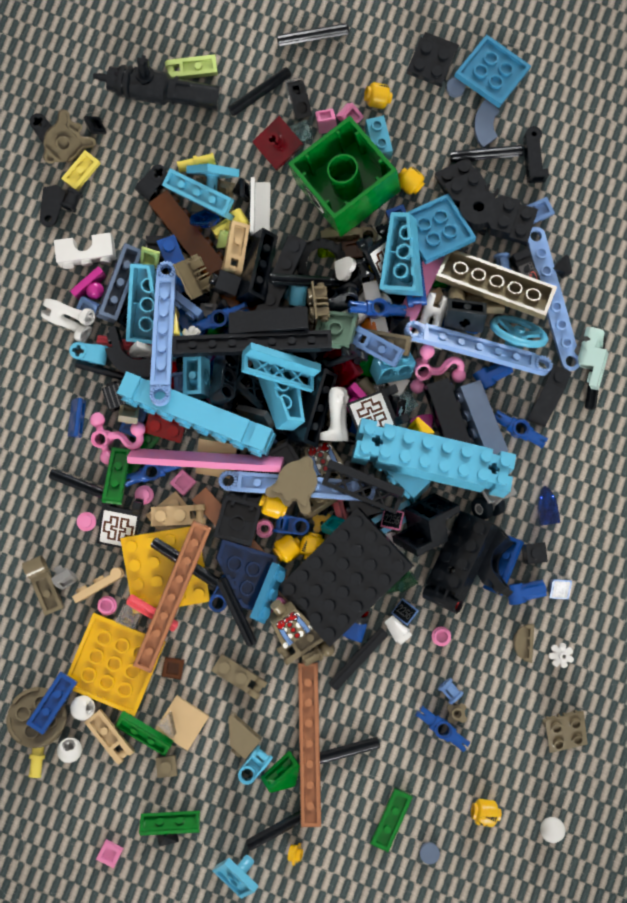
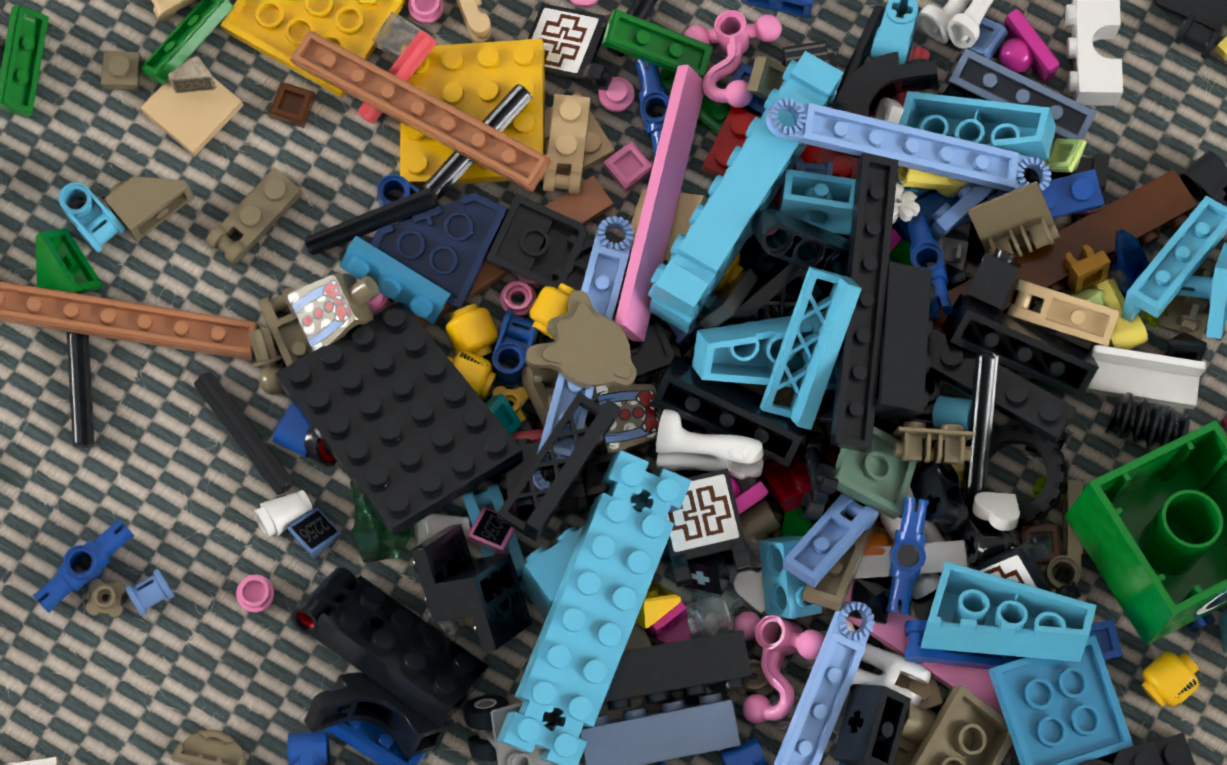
camera: 100 degrees right, 10 degrees down
(211, 238) = (1086, 272): none -> pearl gold tile
(283, 202) = (1146, 422): none -> black piece
(418, 405) = (709, 617): none -> clear tile

